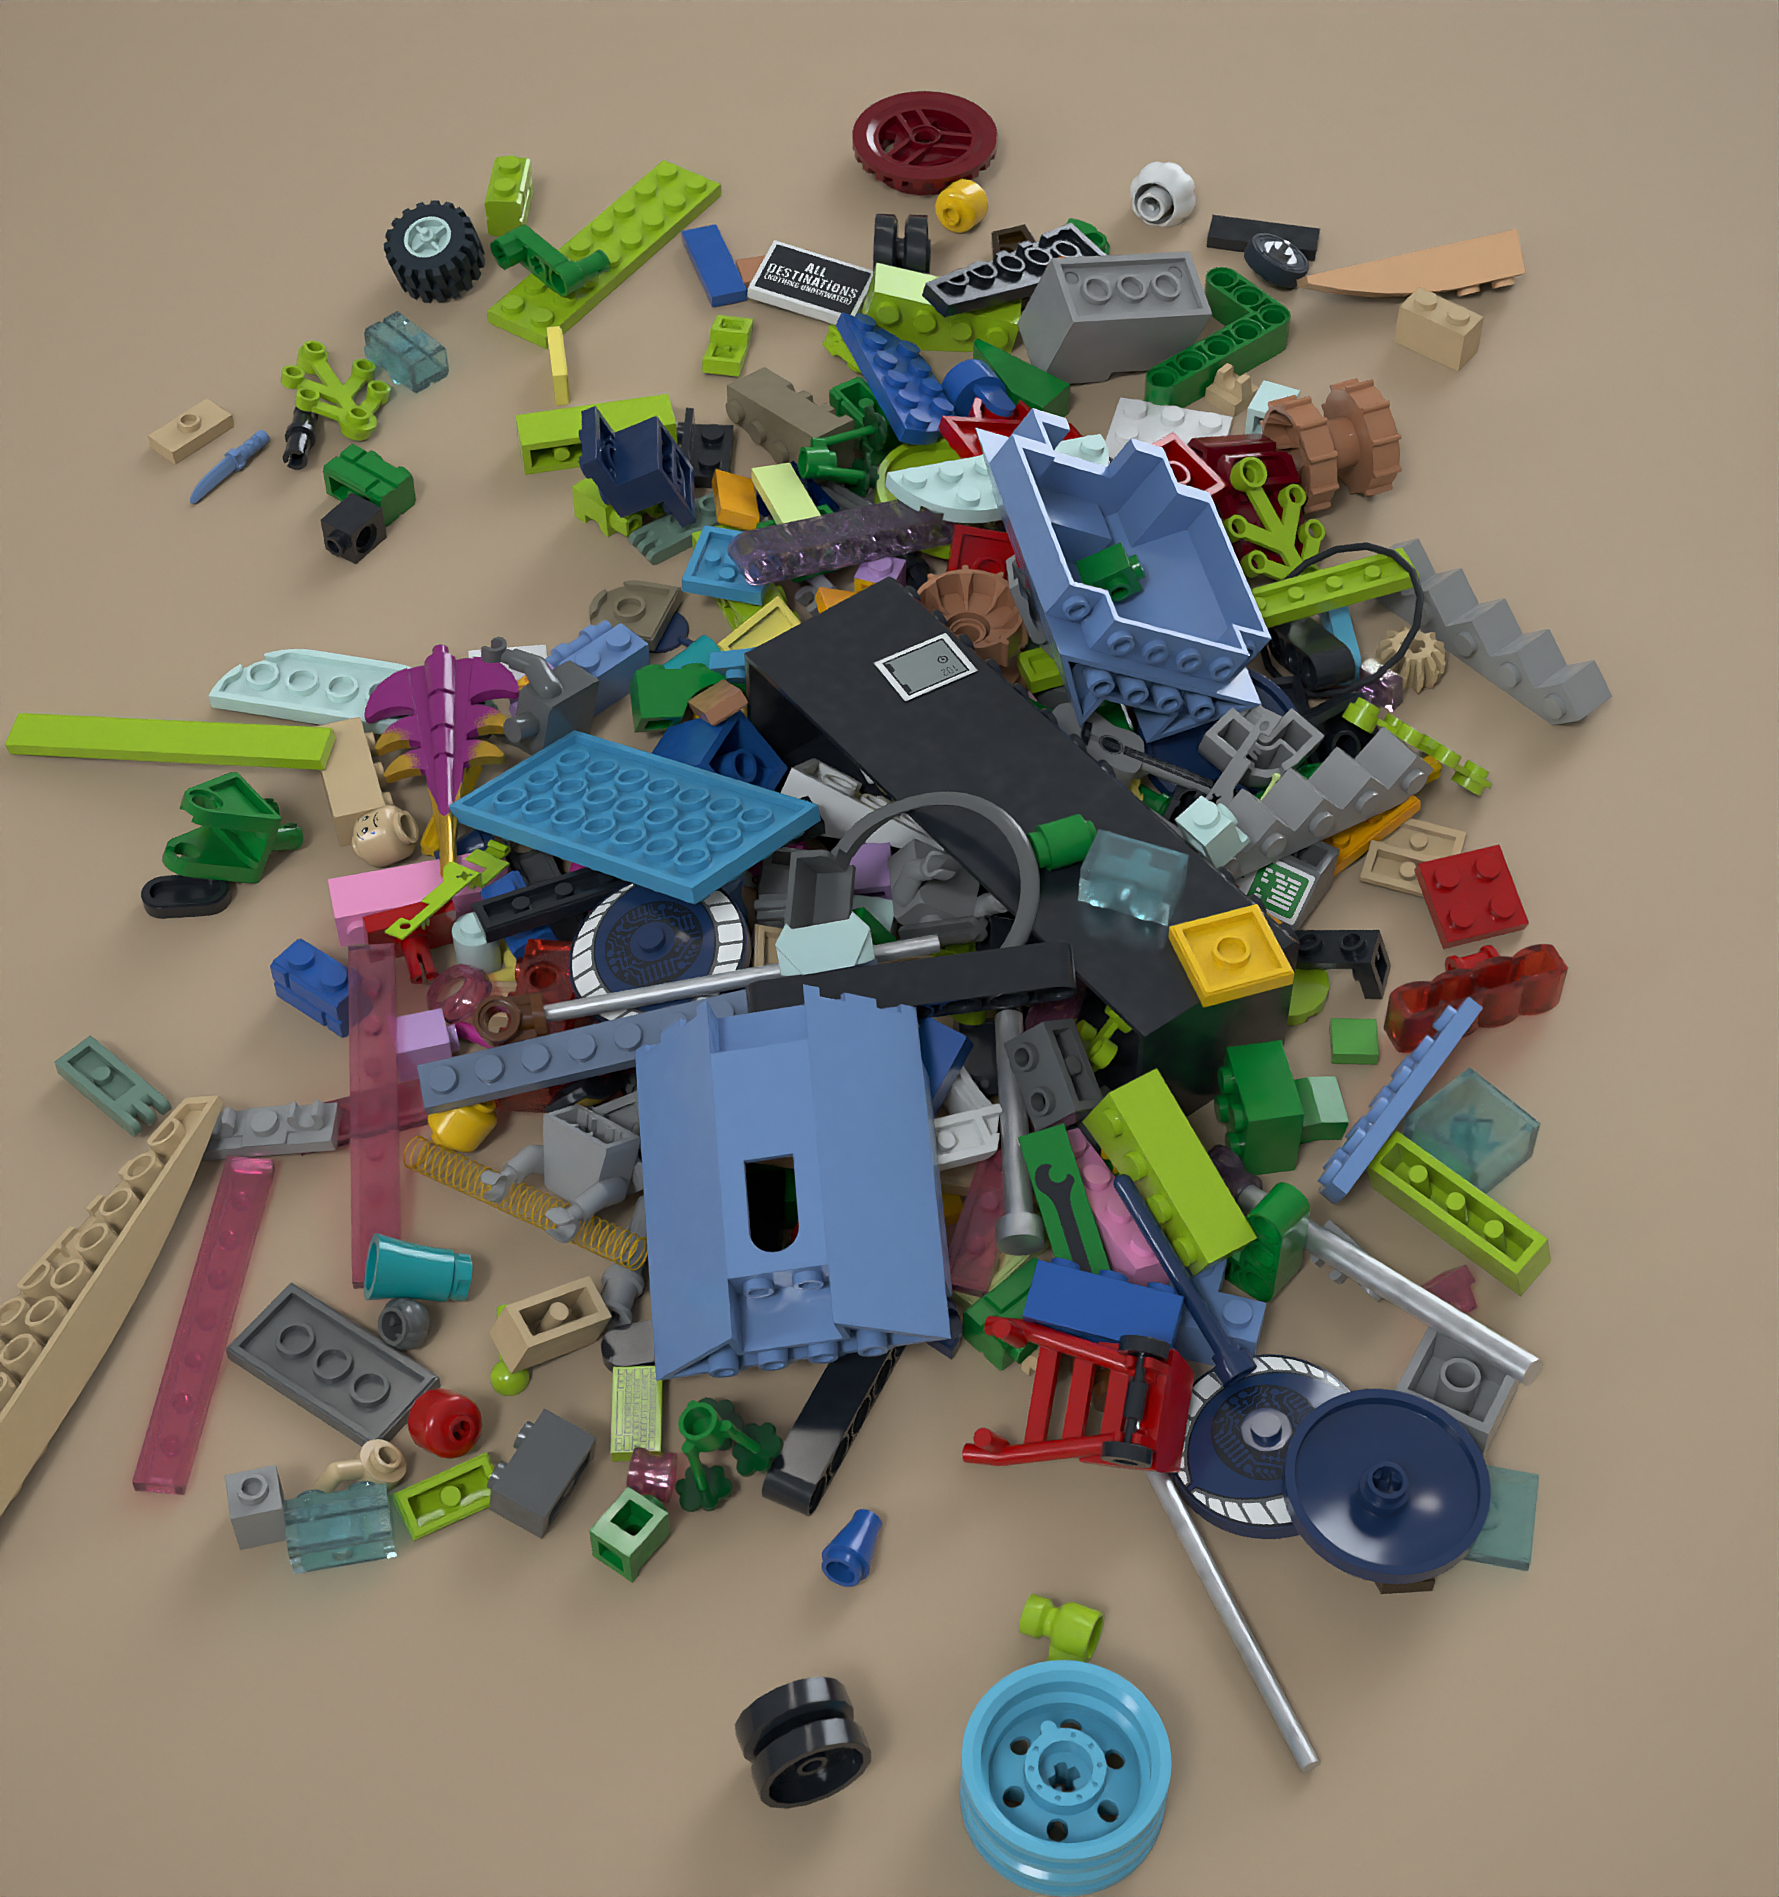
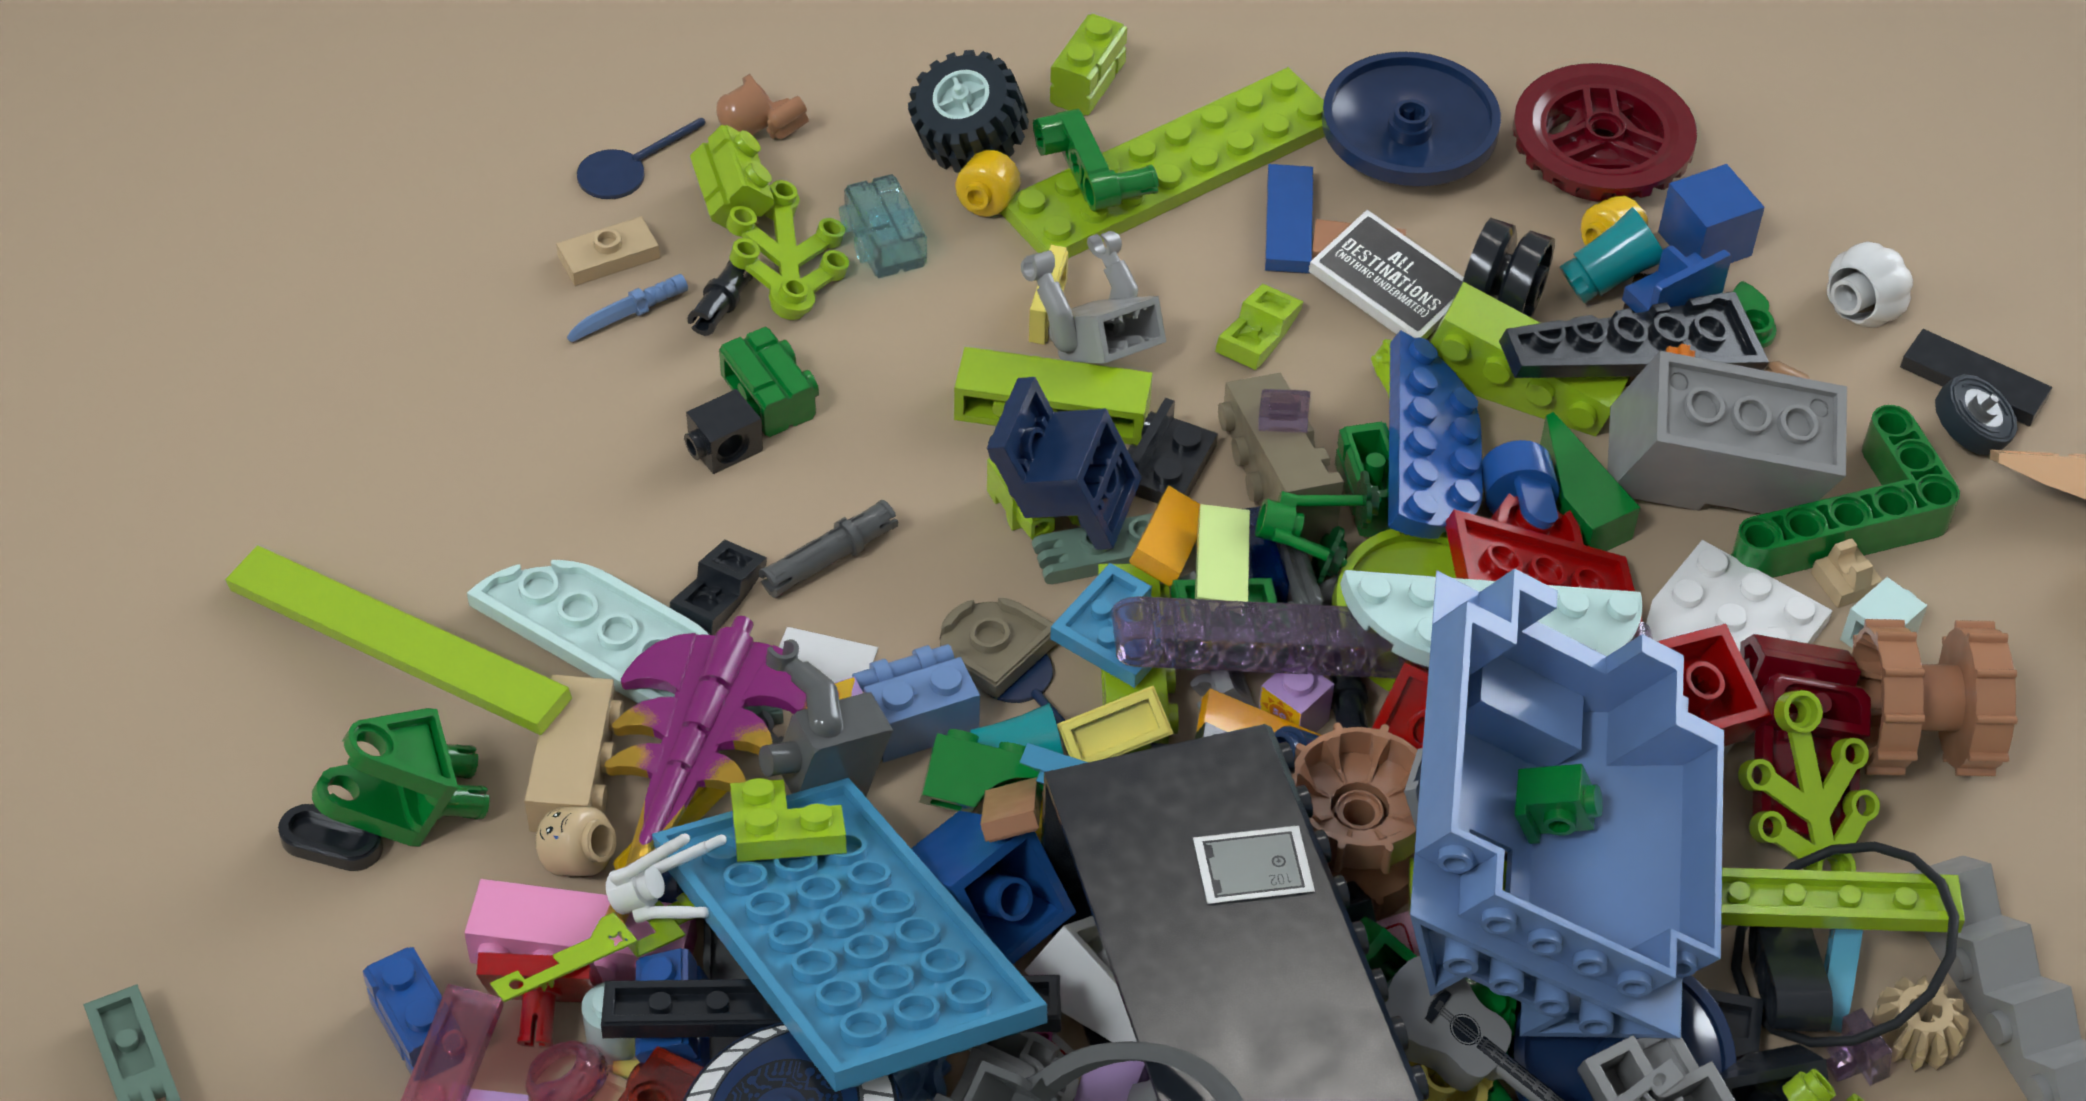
camera: 20 degrees right, 0 degrees up
(169, 375) = (620, 173): none -> dark blue piece
(257, 298) = (752, 111): none -> nougat piece
(267, 346) = (732, 174): none -> lime brick
(403, 634) = (720, 585): none -> black slope
(461, 836) = (641, 882): none -> white plant
(472, 300) = (990, 180): none -> yellow head
(483, 577) = (845, 538): none -> dark grey pin
(536, 773) = (771, 831): none -> lime plate
(612, 375) = (1101, 328): none -> light grey torso
(776, 169) = (1411, 118): none -> dark blue dish
(784, 387) = (1284, 410): none -> clear purple tile
(973, 222) = (1613, 257): none -> teal plant
(1028, 223) = (1679, 280): none -> blue panel
(1030, 180) = (1711, 215): none -> blue head

